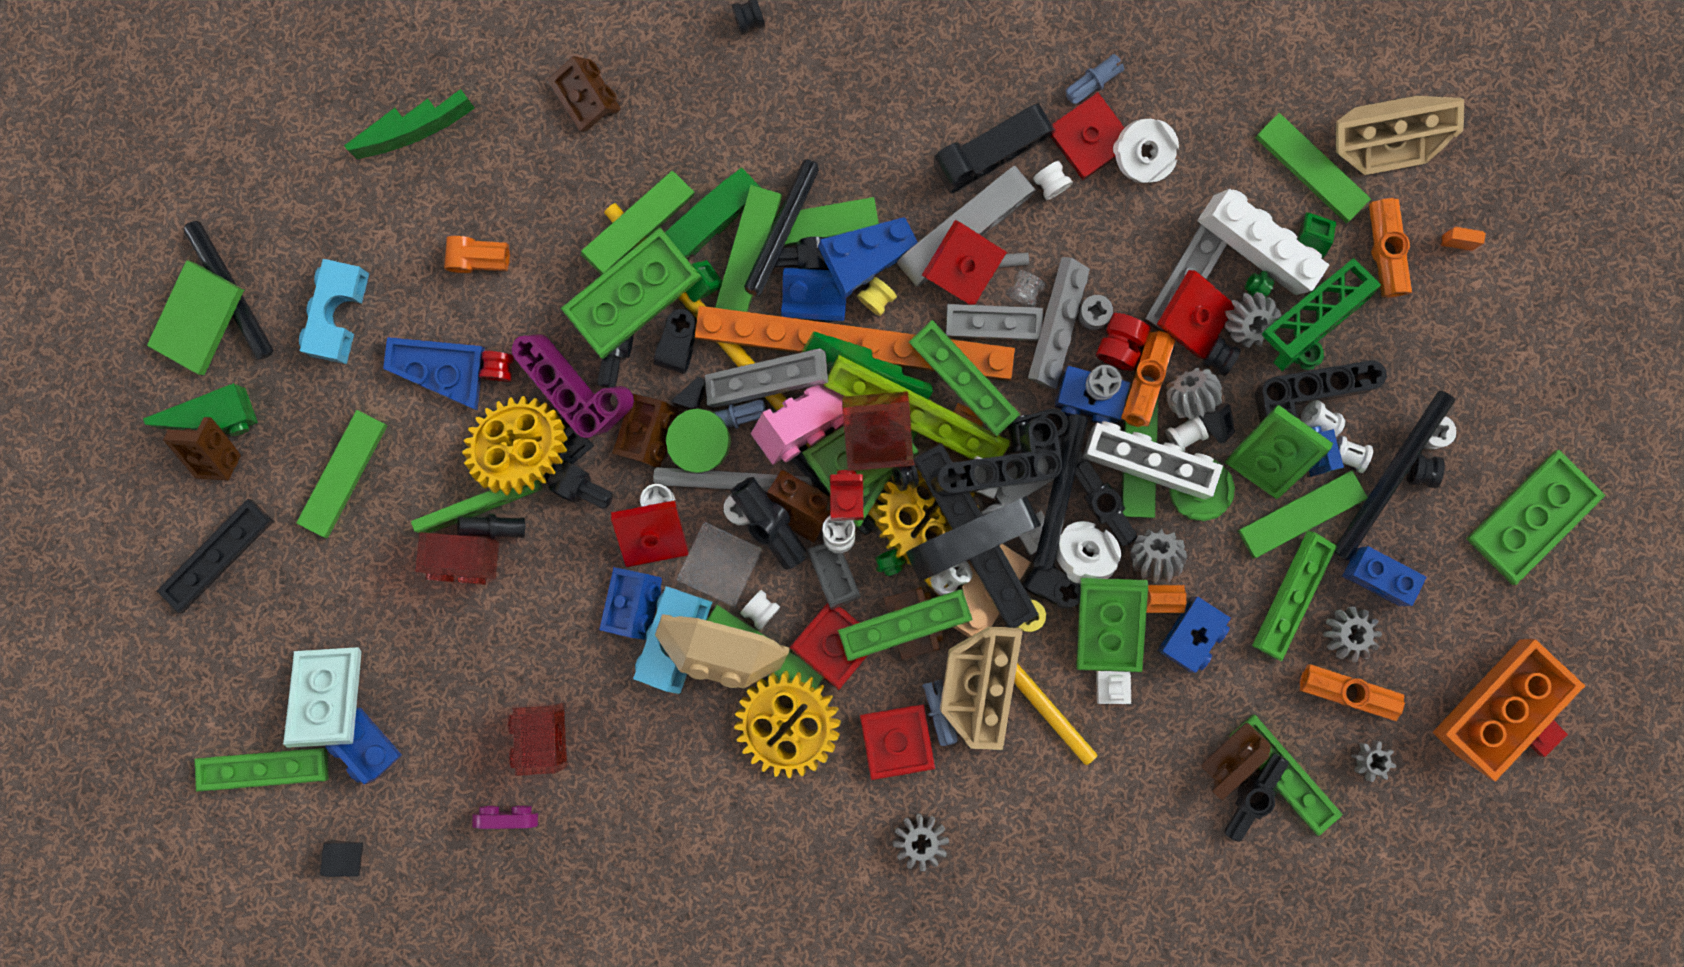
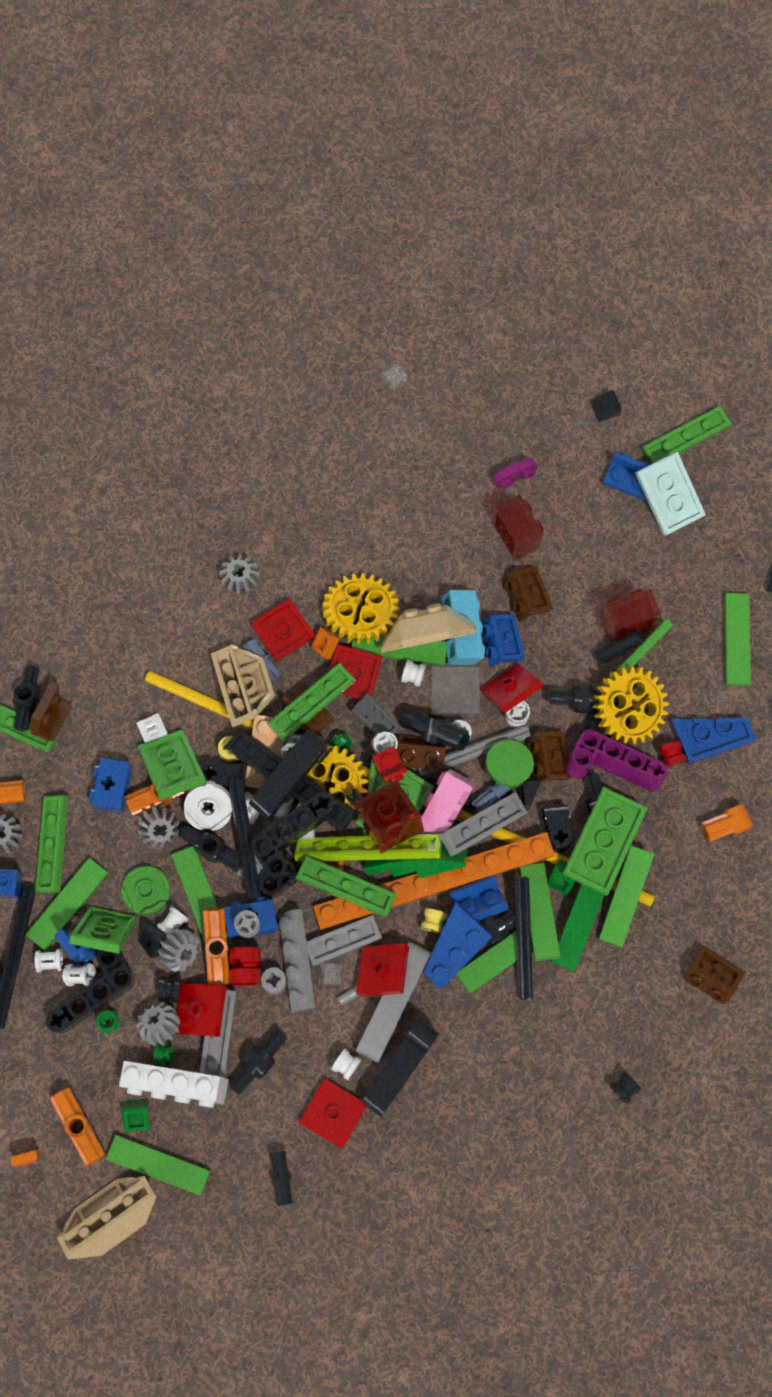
camera: 150 degrees right, 10 degrees down
(569, 649) = (527, 593): none -> reddish brown bracket
(852, 698) = (325, 643): none -> orange tile
(1094, 79) = (349, 1157): sand blue axle -> none
(1147, 132) = (301, 1118): white plate -> none
(1152, 228) = (258, 1062): none -> black axle
(1152, 461) = (189, 886): white brick -> none
(1180, 91) = (281, 1178): none -> black pin
(1324, 324) = (106, 1039): green fence -> none

